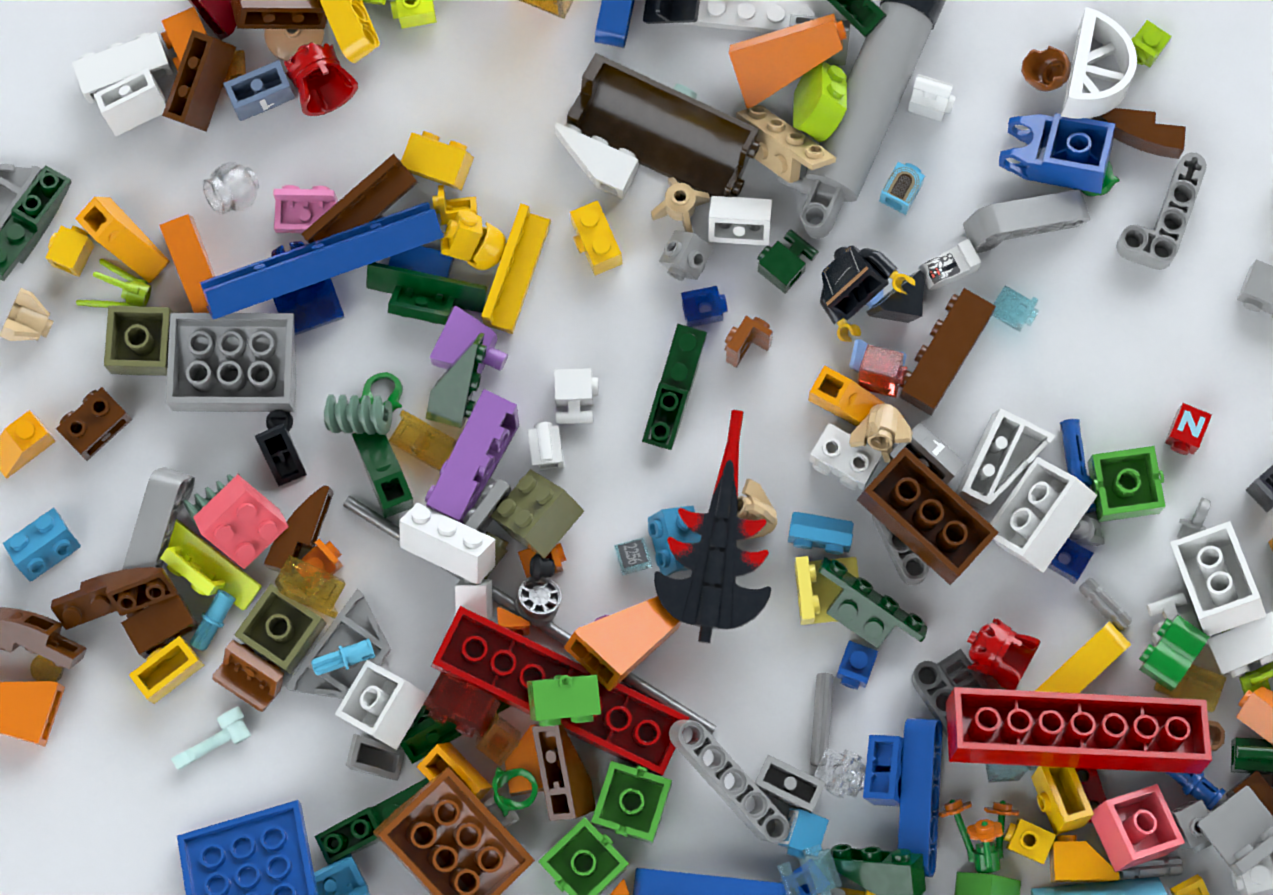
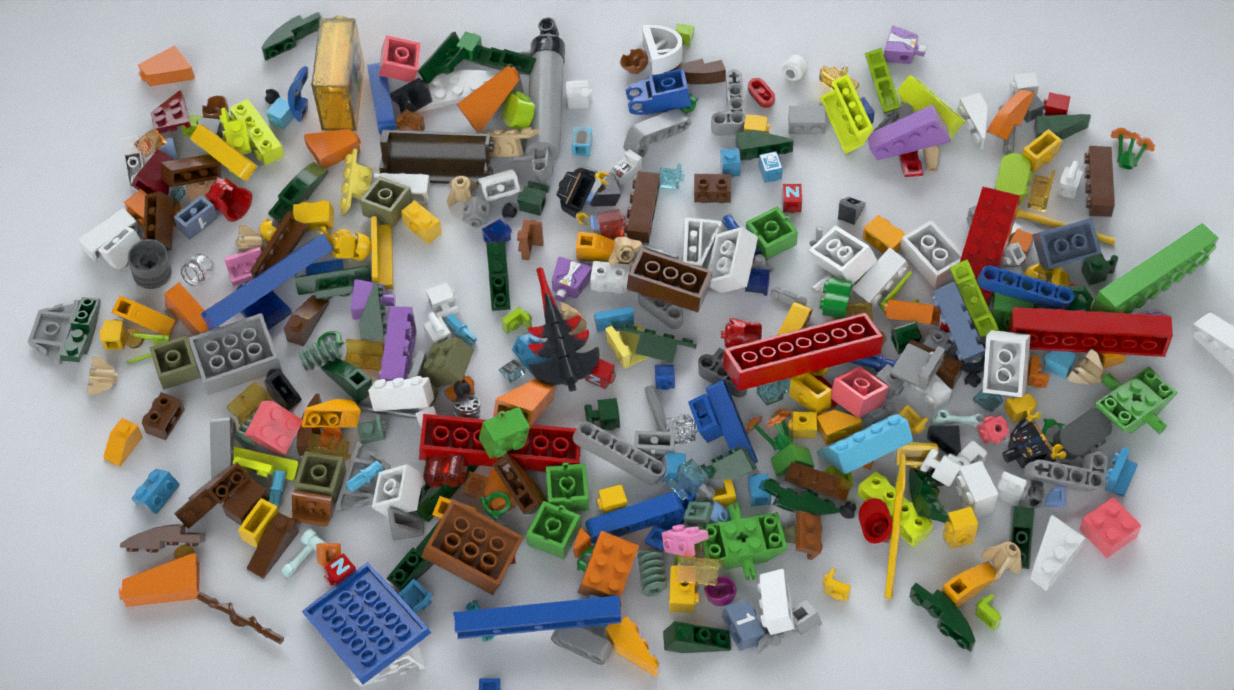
camera: 25 degrees left, 20 degrees down
(84, 810) = (239, 620): none -> reddish brown piece
(99, 263) = (131, 341): none -> clear yellow tile
(153, 137) = (149, 264): none -> dark grey wheel
(174, 710) = (272, 545): none -> reddish brown slope
(223, 456) = (248, 402): none -> clear yellow panel
(245, 36) = (177, 193): none -> clear light blue slope
(248, 758) = (327, 552): none -> orange slope
(253, 795) = (338, 570): none -> red brick
(323, 168) = (249, 240): none -> tan brick
(339, 534) = (332, 414): none -> light orange slope
(360, 160) = (266, 229): none -> yellow hair
(360, 340) = (305, 320): none -> reddish brown slope
(387, 574) = (372, 430): none -> sand green bracket
(429, 104) = (297, 190): none -> dark green slope
(513, 40) = (331, 146): none -> orange slope
(526, 120) = (356, 181): none -> light yellow bracket
(556, 180) = (386, 200): none -> olive brick
(583, 455) = (460, 330): none -> medium azure axle
(654, 42) = (410, 120): none -> clear orange bracket
(666, 475) = (515, 319): none -> lime bracket
(689, 849) = (611, 499): none -> yellow brick
(739, 269) = (509, 211): none -> black piece
(742, 696) = (607, 414): none -> dark green brick
(766, 626) = (603, 374): none -> red brick
(781, 434) = (570, 278): none -> medium lavender torso
(1070, 359) = (712, 188): none -> reddish brown brick
(1118, 324) = (730, 161): none -> dark azure brick
(1175, 305) = (755, 143): none -> dark green slope
(1178, 357) = (770, 167): none -> dark azure brick
(1188, 274) = (757, 123): none -> yellow brick
(1226, 210) = (762, 94): none -> red plate

